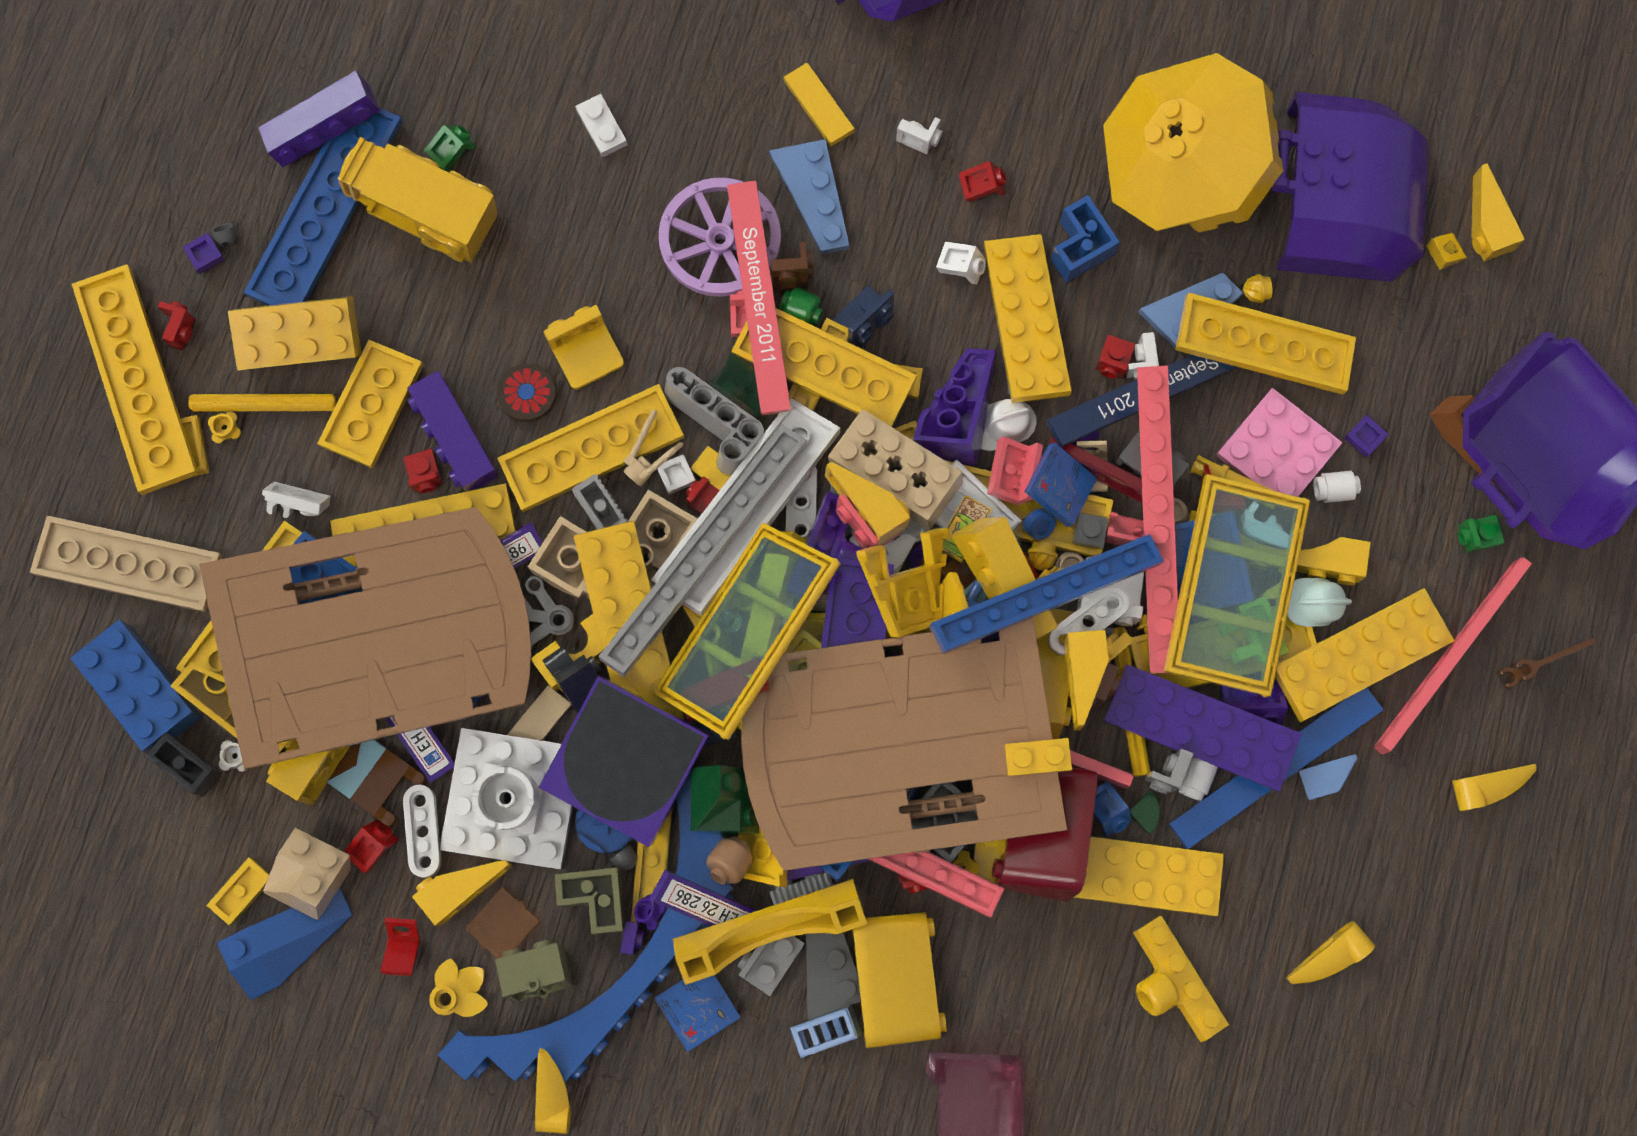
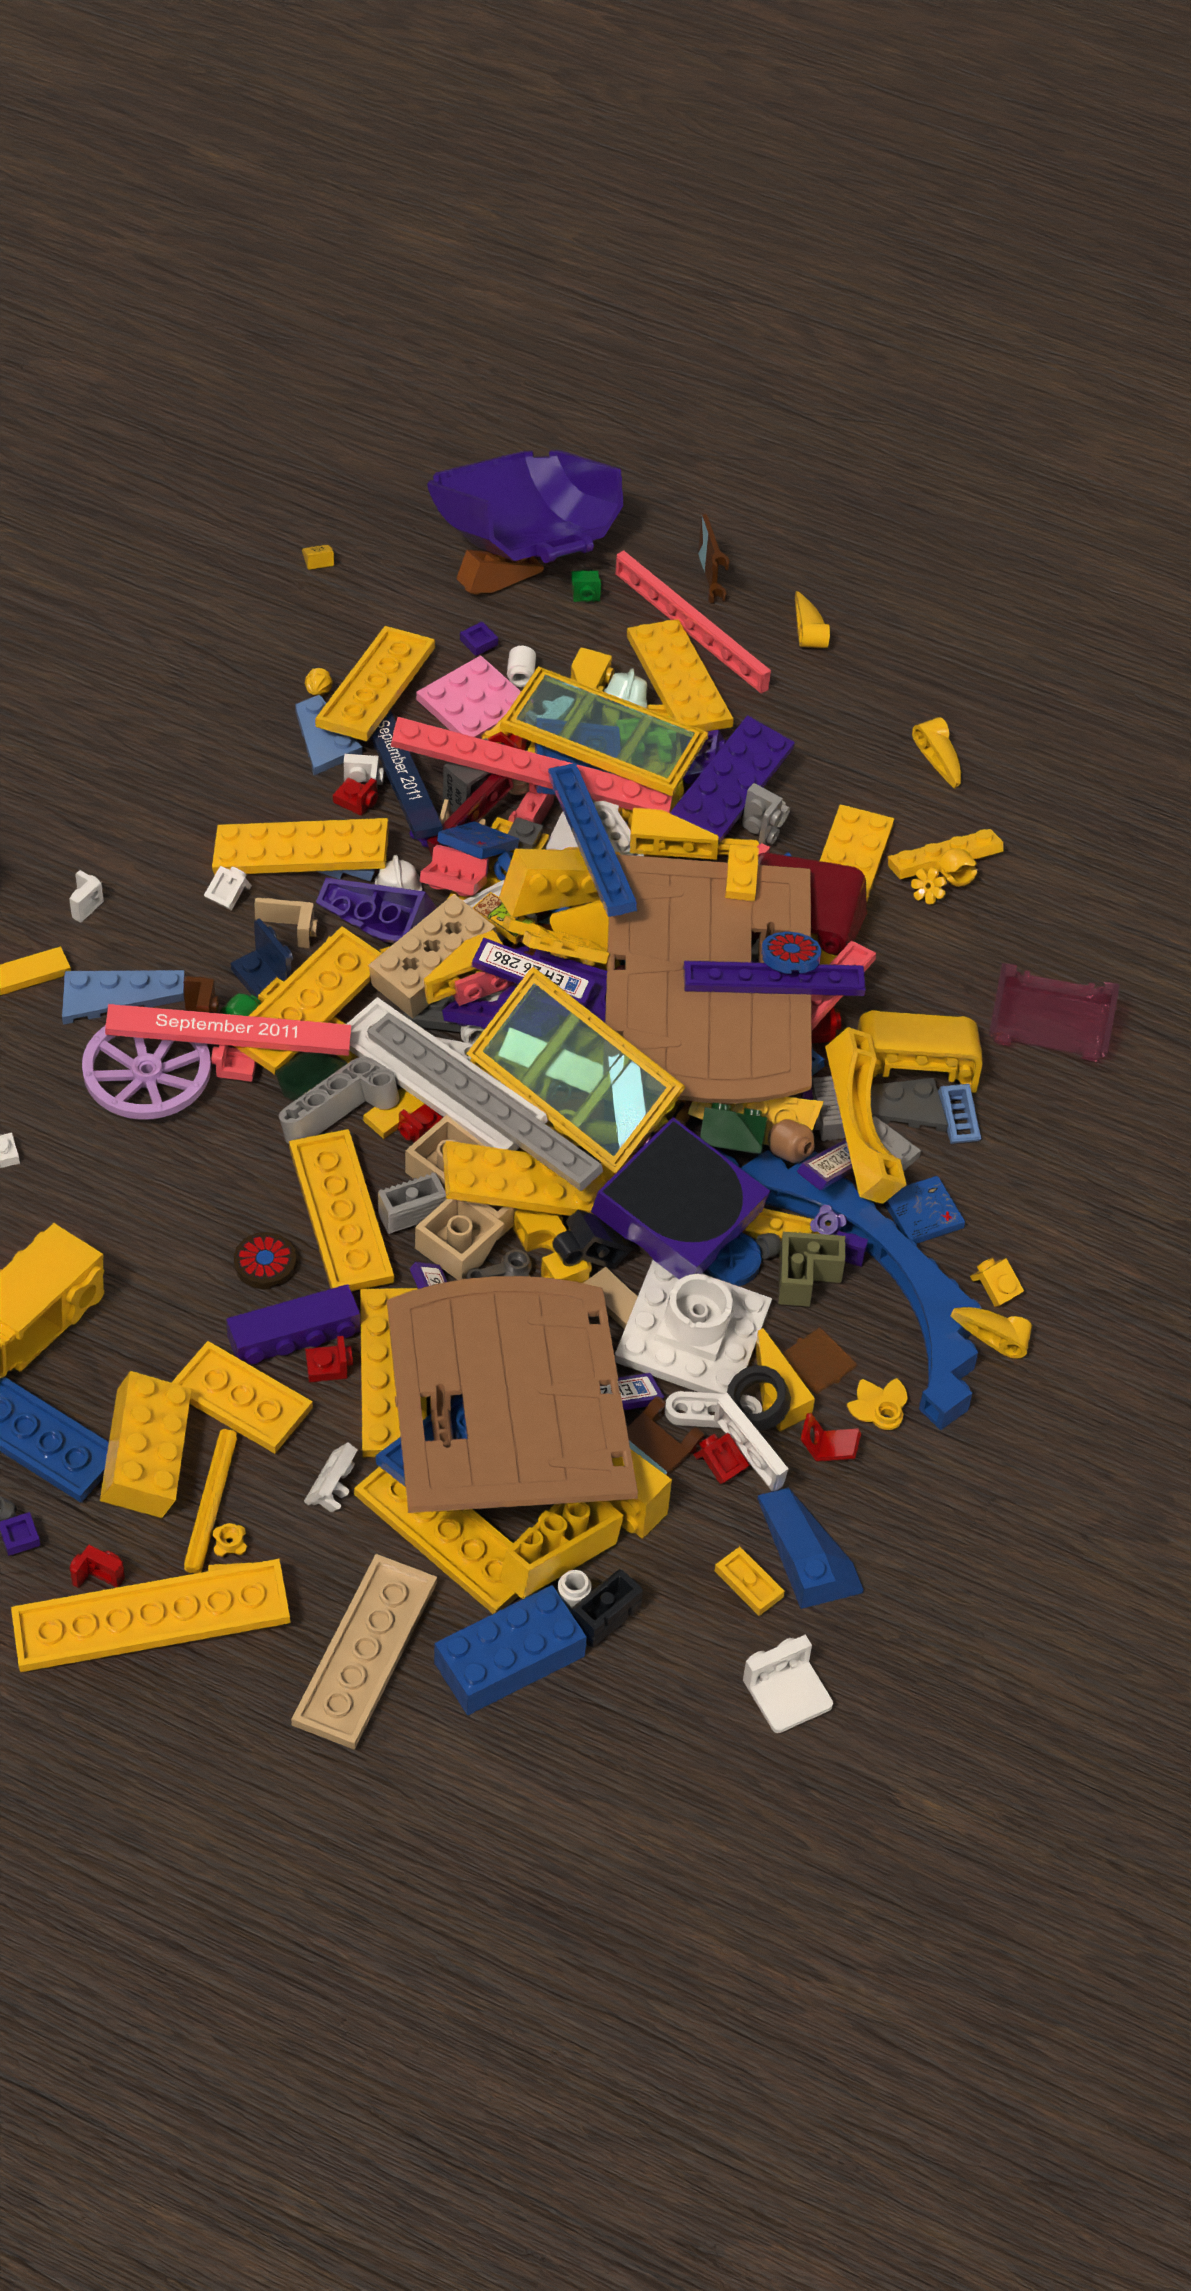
camera: 85 degrees left, 25 degrees down
(132, 942) = (786, 1684): none -> white bracket
(189, 732) = (573, 1587): none -> white brick
(226, 759) = (599, 1564): white plate -> none
(307, 873) = (743, 1506): tan slope -> none
(366, 870) = (750, 1443): none -> white tile
(404, 856) = (764, 1374): none -> black tyre
(528, 972) = (873, 1319): olive brick -> none
(583, 347) = (232, 1200): yellow bracket -> none
(620, 1092) = (998, 1280): none -> yellow bracket
(641, 469) = (375, 1167): tan plant -> none
(676, 474) = (387, 1144): white plate -> none
(851, 581) = (514, 965): none -> tile
(906, 812) = (760, 978): none -> dark purple tile
(929, 344) = (290, 913): none -> tan bracket
(936, 824) = (791, 952): none -> tile
(982, 181) = (150, 857): red bracket -> none
(1089, 240) = (237, 785): blue brick -> none
(1126, 965) = (928, 885): none -> yellow plant
(1146, 813) = (796, 849): dark green tile -> none
(1217, 164) = (184, 712): yellow windscreen -> none
(1241, 792) = (784, 782): blue tile -> none
(1327, 777) = (783, 721): medium blue slope -> none
(1353, 189) = (243, 584): dark purple windscreen -> none
(1493, 223) = (298, 518): yellow slope -> none

